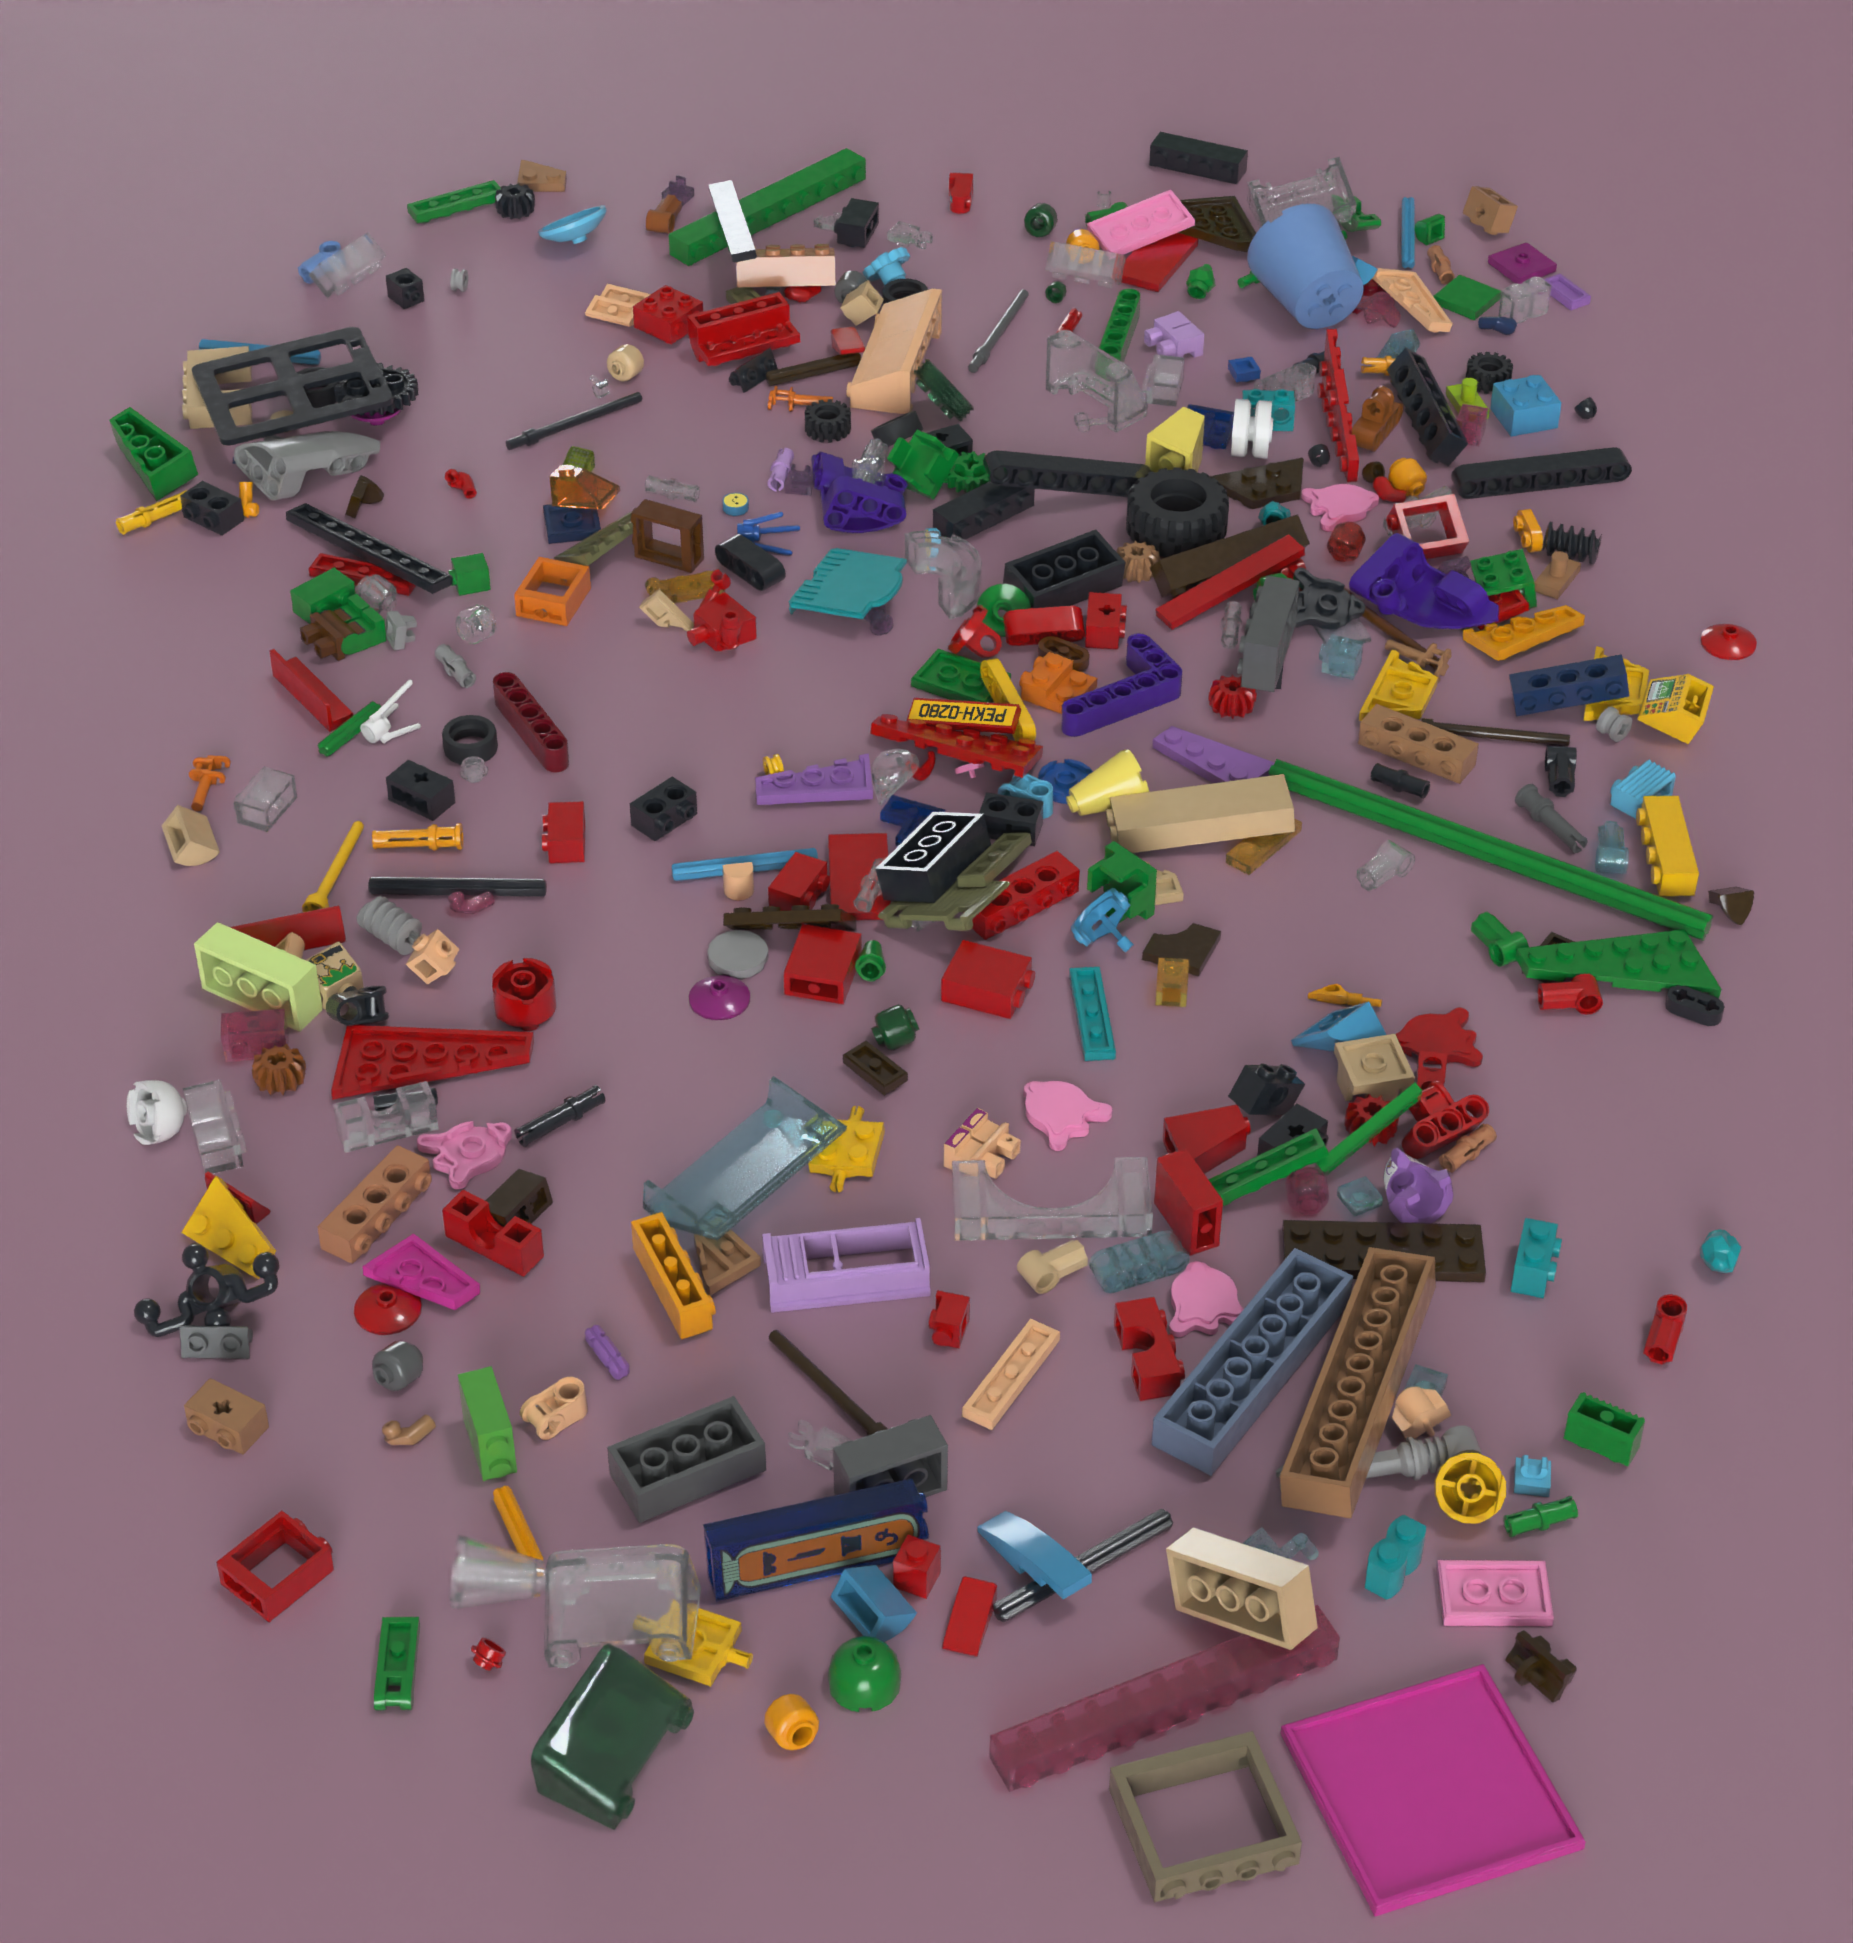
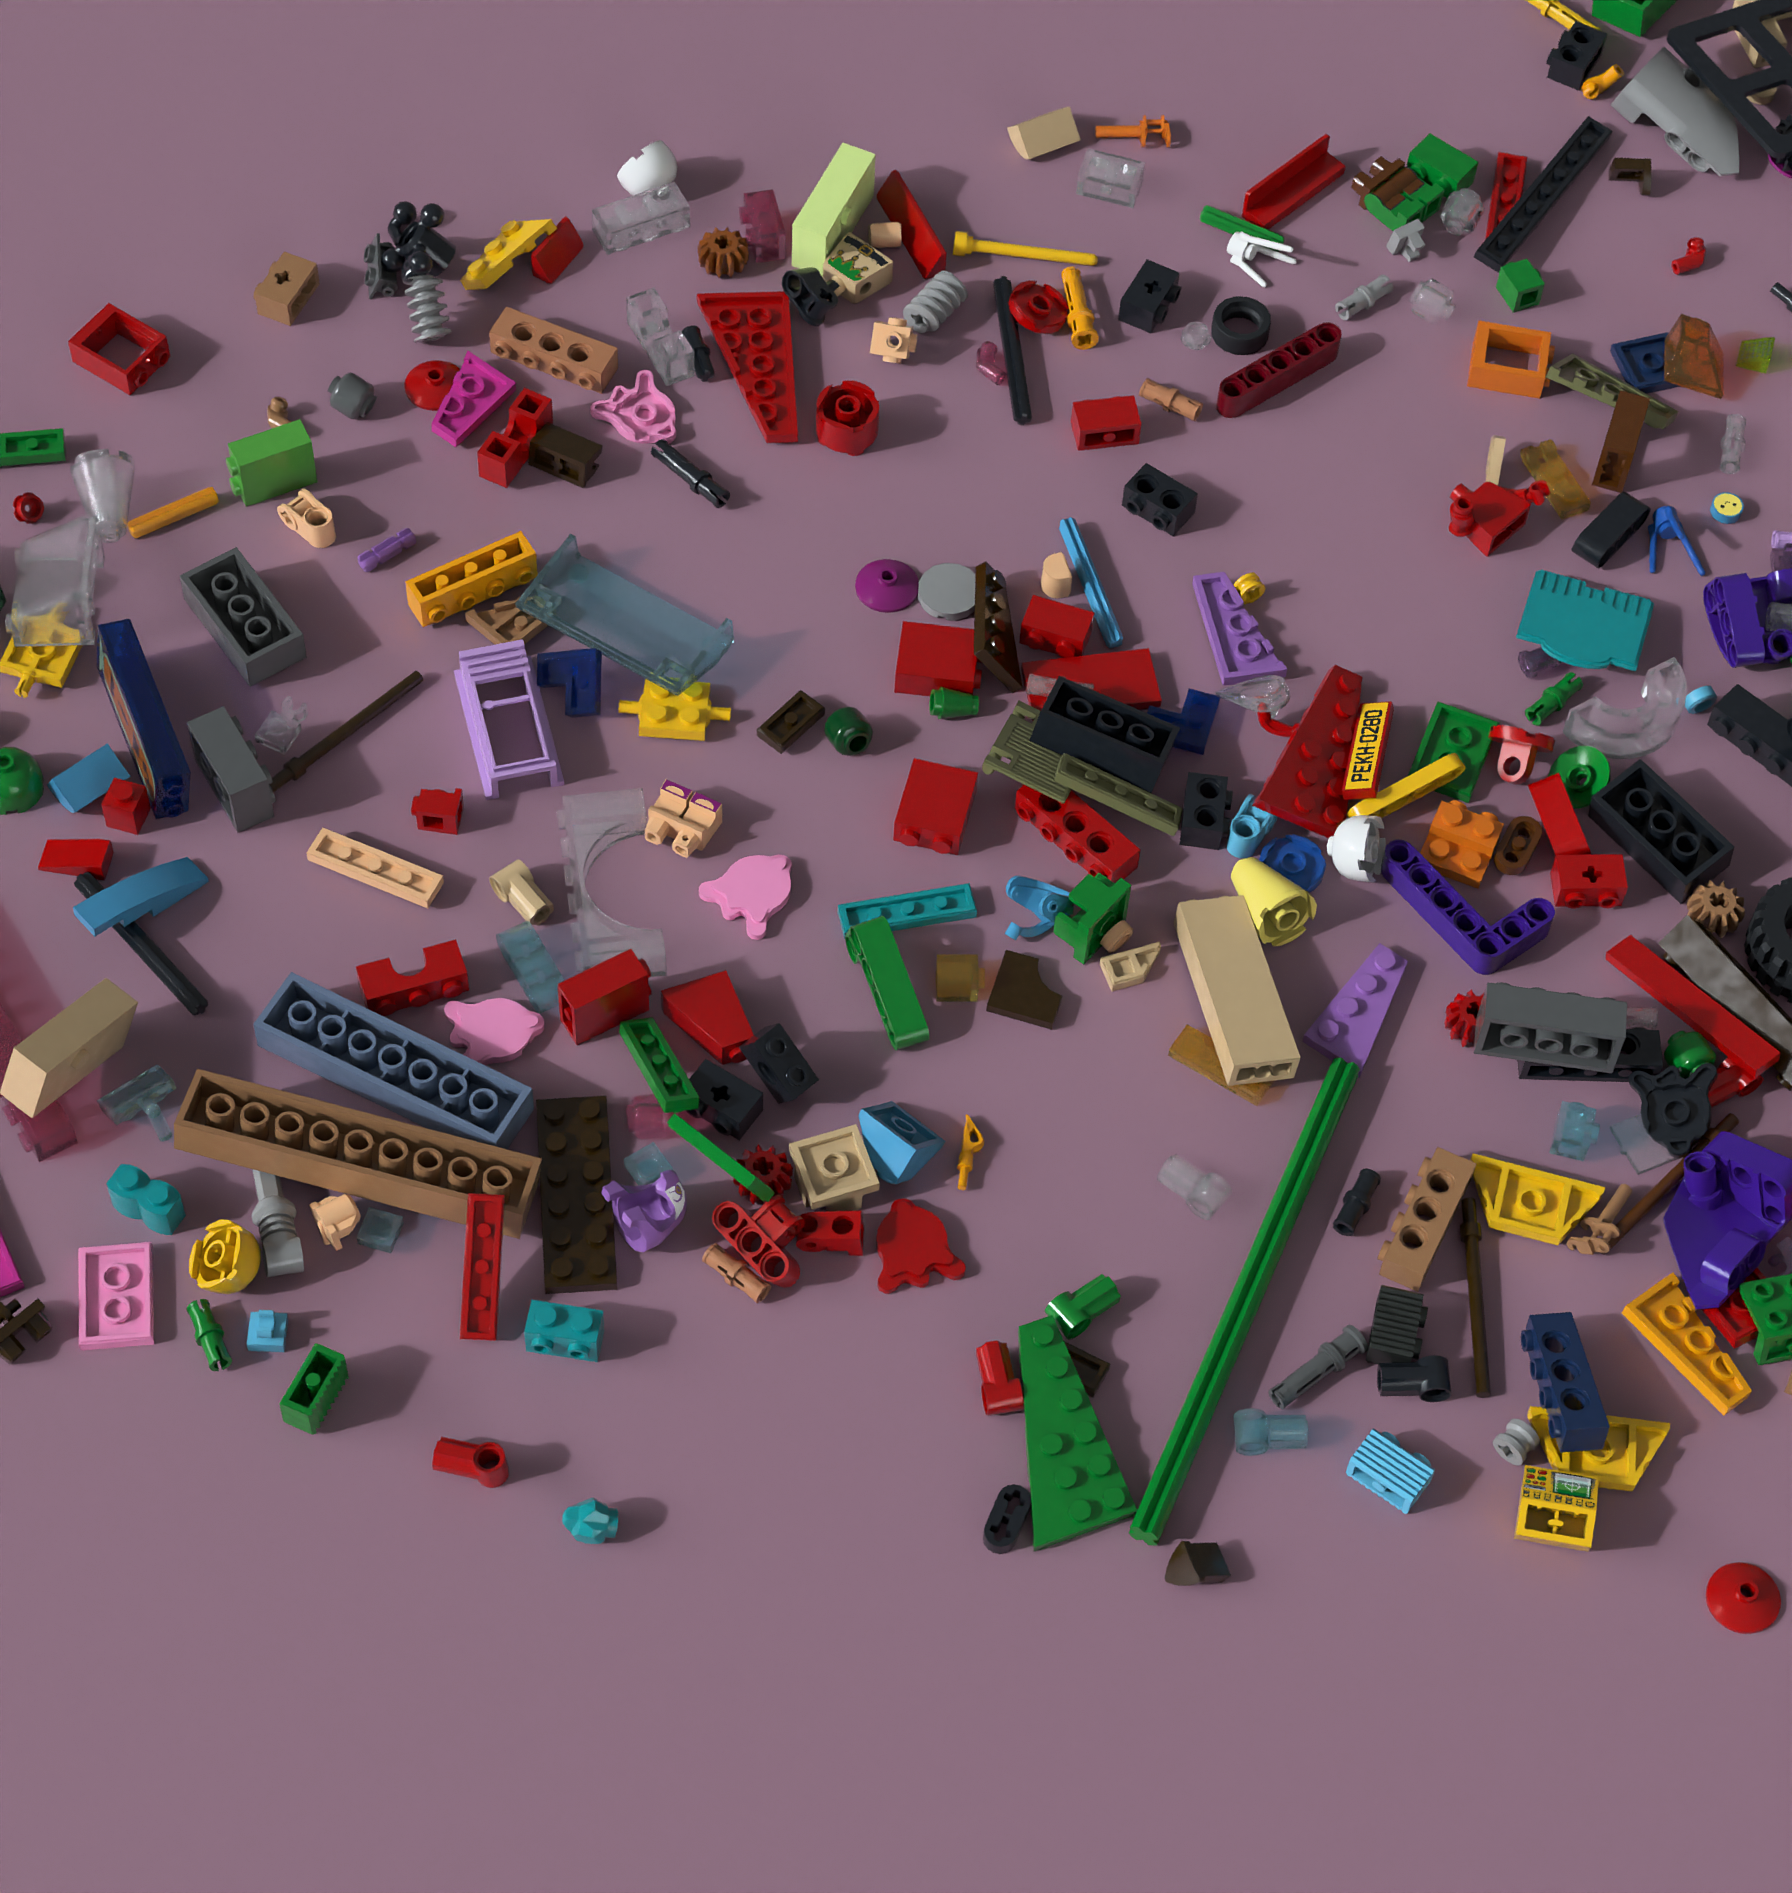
camera: 80 degrees right, 15 degrees up
(307, 1289) = (427, 308): none -> light grey piece
(411, 862) = (1035, 319): none -> red tile
(544, 793) = (1170, 399): none -> nougat pin
(807, 1200) = (579, 673): none -> clear blue plate
(917, 617) = (1554, 698): none -> green pin
(1064, 731) = (1357, 847): none -> white cylinder
(1175, 1016) = (888, 980): none -> green beam
(1478, 1299) = (482, 1267): none -> red tile
(1513, 770) = (1395, 1326): none -> pearl dark grey brick
(1667, 846) = (1280, 1491): yellow brick -> none

